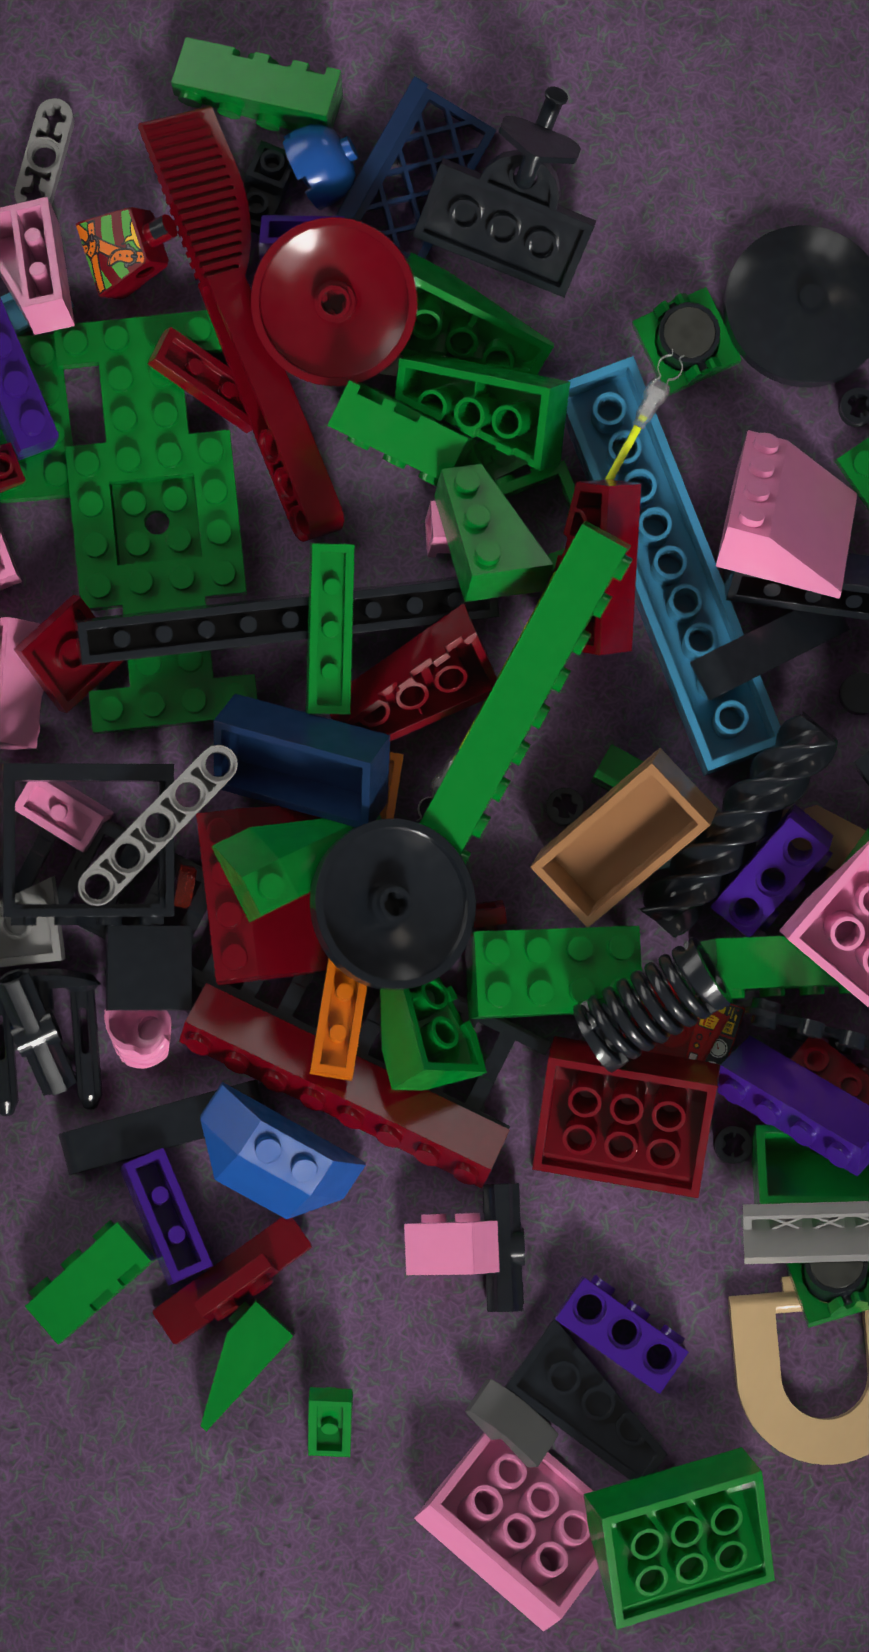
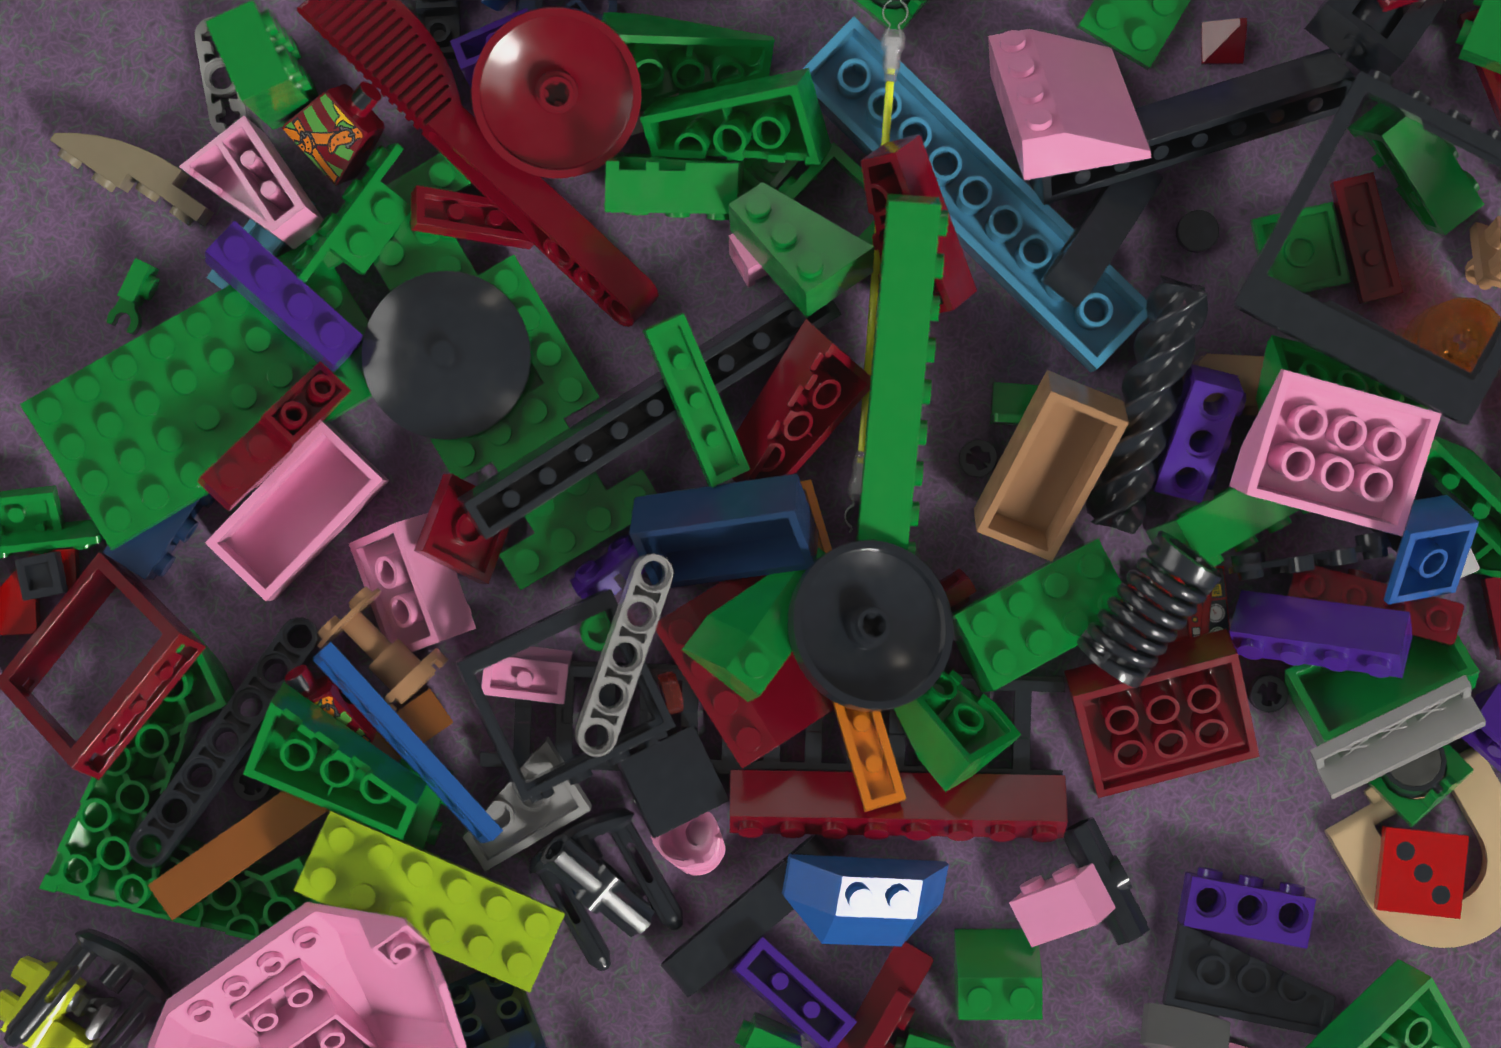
camera: 25 degrees left, 5 degrees up
(85, 156) = (262, 63): none -> green piece
(108, 338) = (362, 223): none -> green bracket
(126, 490) = (446, 355): none -> black dish
(140, 800) = (594, 632): none -> green tile
(169, 751) = (600, 574): none -> dark purple hinge
(362, 1287) = (996, 975): none -> green slope
(799, 1374) = (1421, 872): none -> red tile

